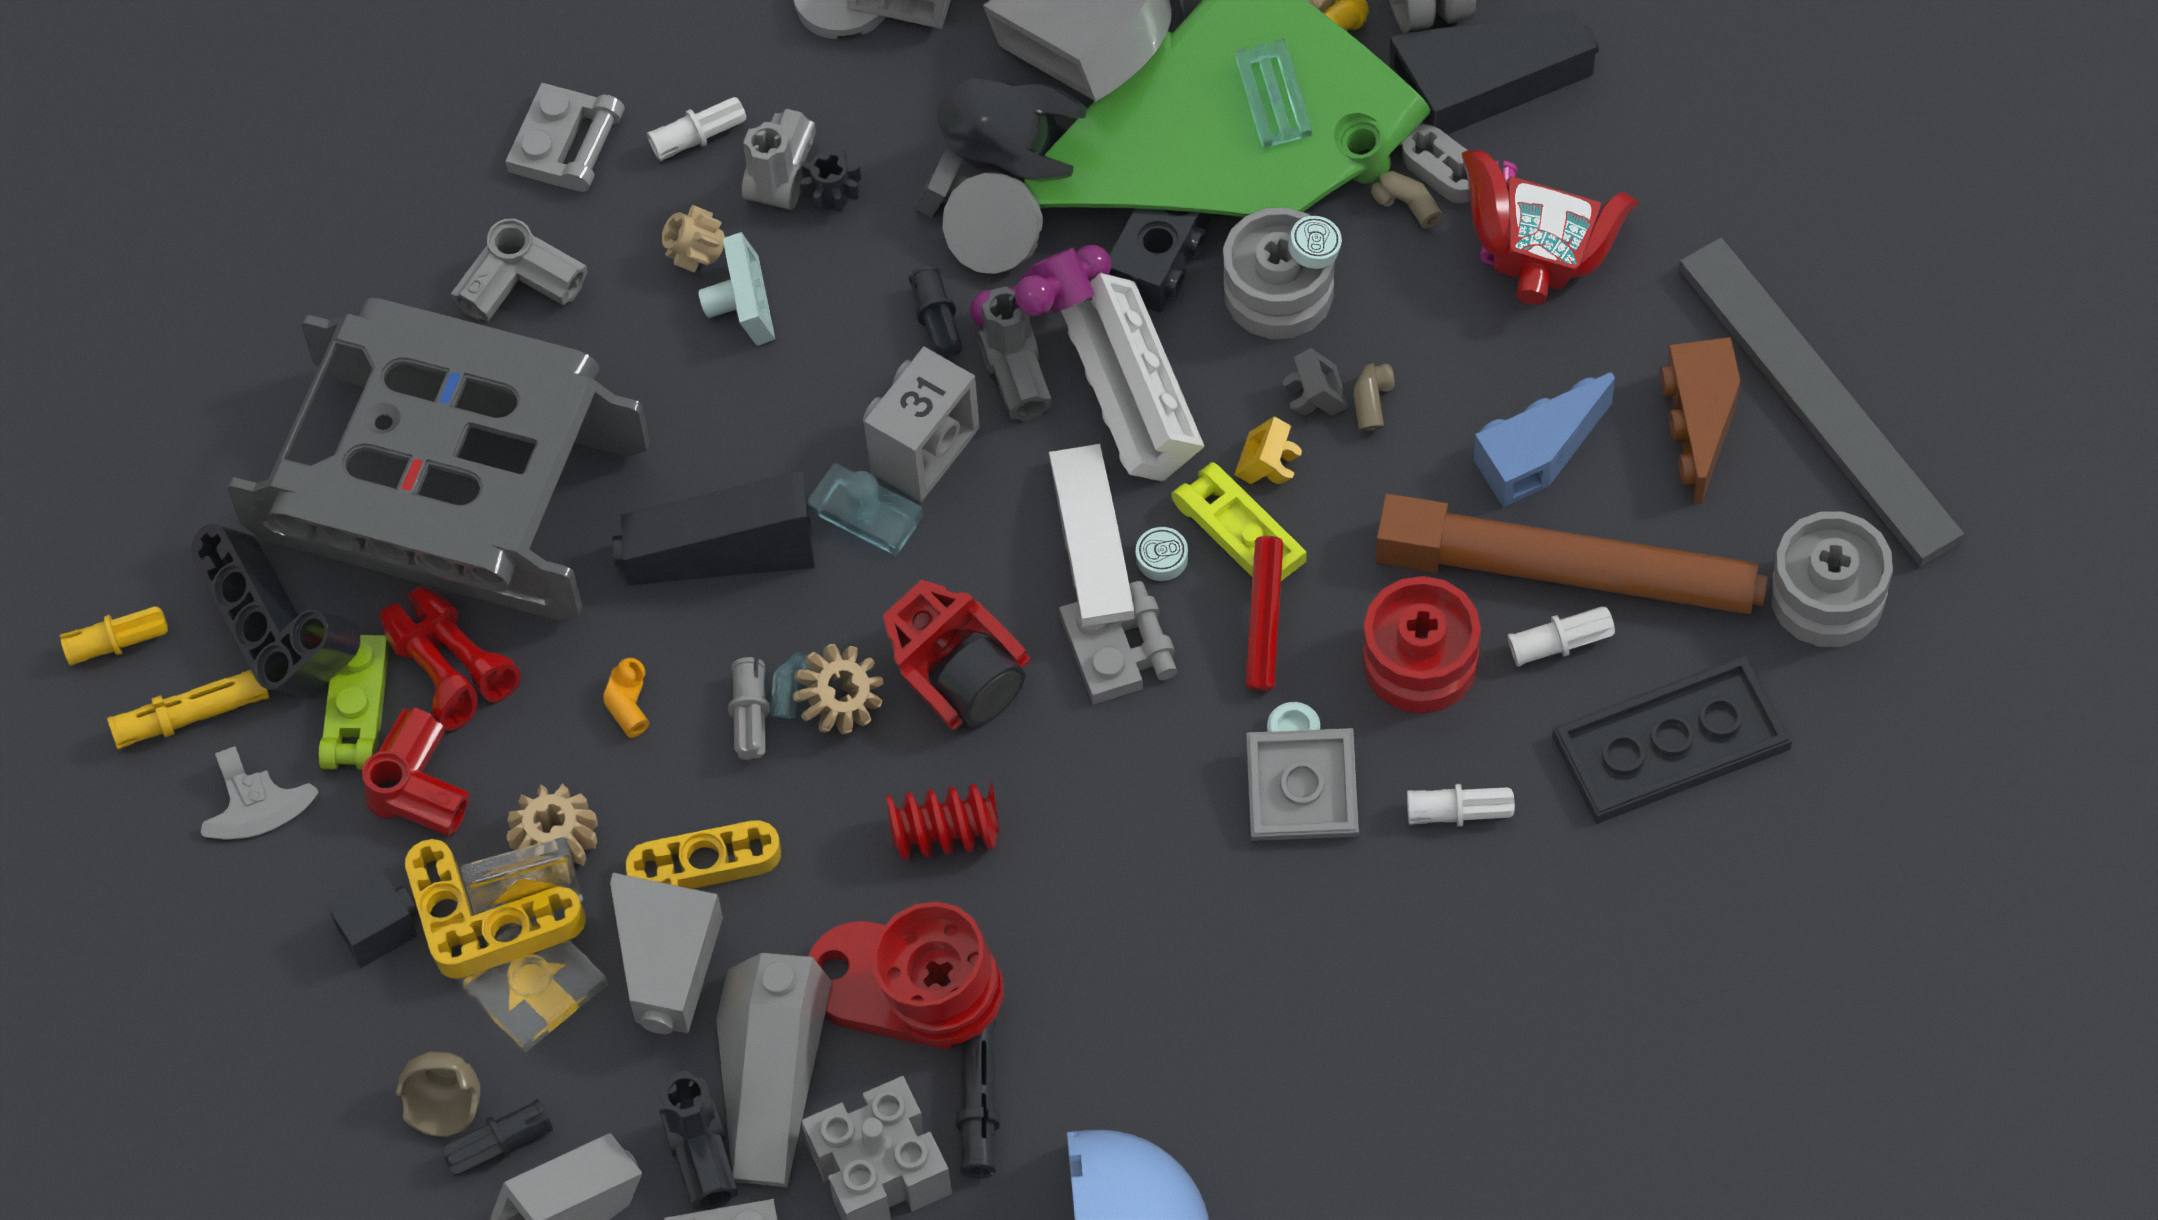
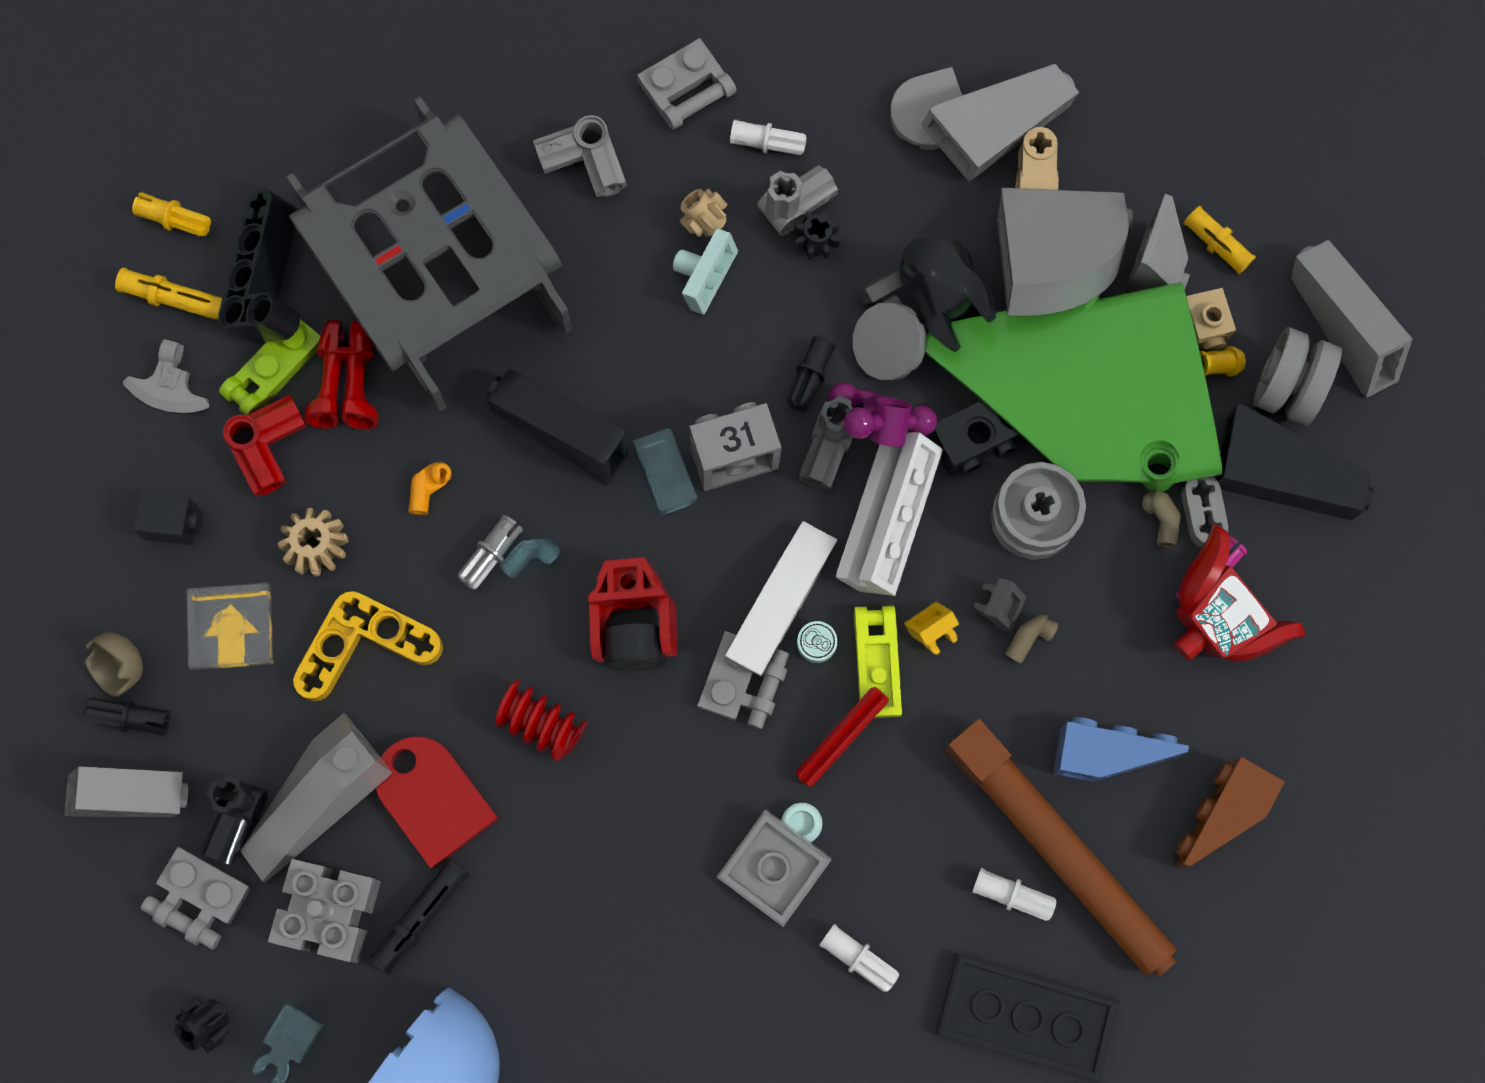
camera: 30 degrees right, 15 degrees up
(464, 928) = (213, 564): yellow beam -> none
(519, 874) = (259, 566): clear tile -> none
(665, 948) = (303, 678): light grey slope -> none
(821, 696) = (548, 599): tan gear -> none
(933, 948) = (427, 815): red wheel -> none
(1263, 54) = (1139, 361): clear light blue tile -> none
(1314, 242) = (1069, 516): light aqua tile -> none
(1421, 644) = (939, 820): red wheel -> none
(1821, 402) = (1311, 863): dark grey tile -> none
(1831, 579) = (1239, 995): light grey wheel -> none

